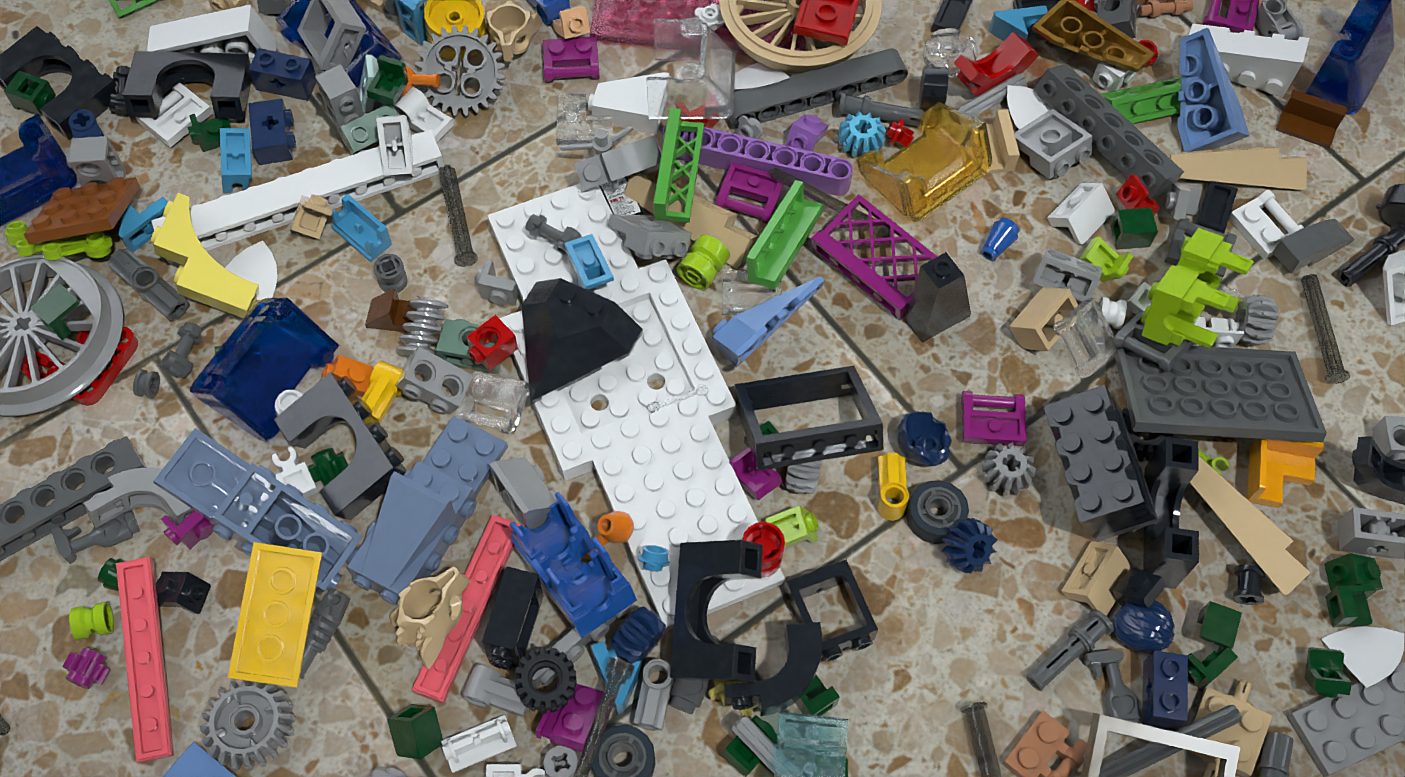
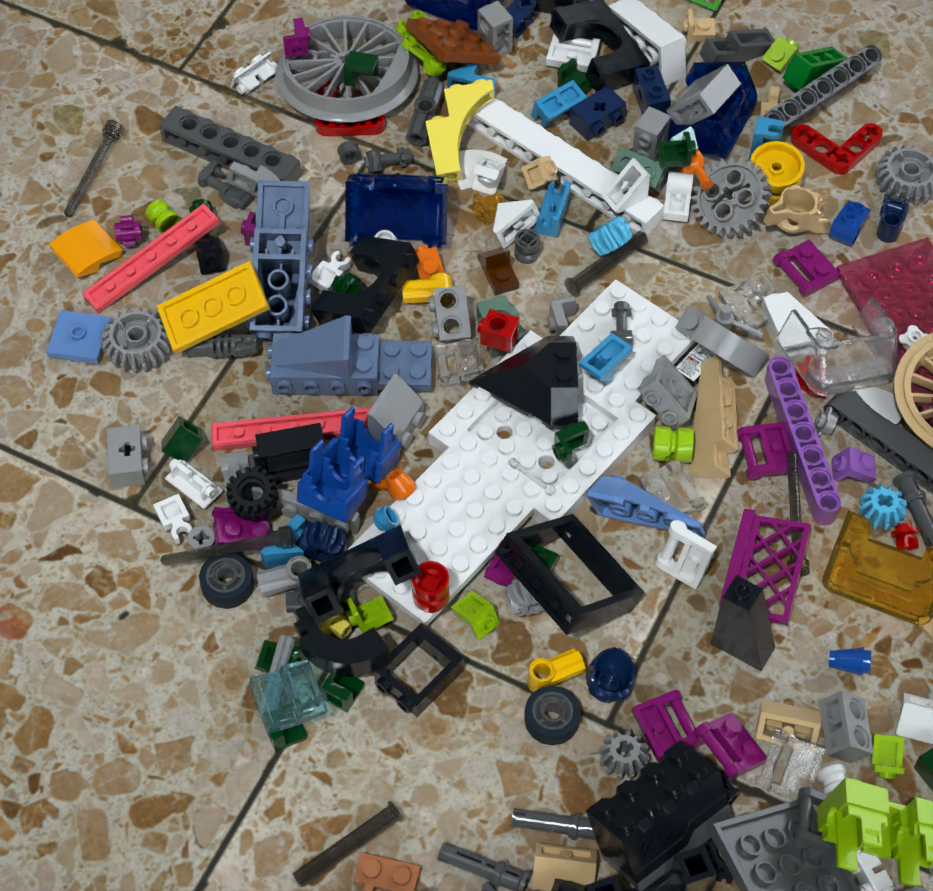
camera: 65 degrees right, 5 degrees down
(72, 730) = (85, 248): none -> light orange slope
(276, 265) = (487, 175): none -> white slope
(316, 284) = (487, 207): none -> clear yellow bracket
(352, 267) = (512, 218): none -> white slope
(422, 325) = (490, 285): light grey piece -> none
(429, 617) = (265, 400): tan piece -> none
(433, 193) = (610, 235): none -> medium azure gear
(572, 22) = (835, 248): light nougat bracket -> none
(662, 353) = (569, 438): none -> dark green bracket
(669, 163) = (732, 373): bright green fence -> none
(743, 626) = (370, 614): none -> lime bracket
(782, 238) = (732, 492): bright green fence -> none
(844, 309) = (693, 558): none -> white plate
(969, 545) = (523, 754): dark blue gear -> none
(1040, 375) = (731, 745): none -> magenta plate
(1060, 549) = (573, 825): none -> dark grey pin

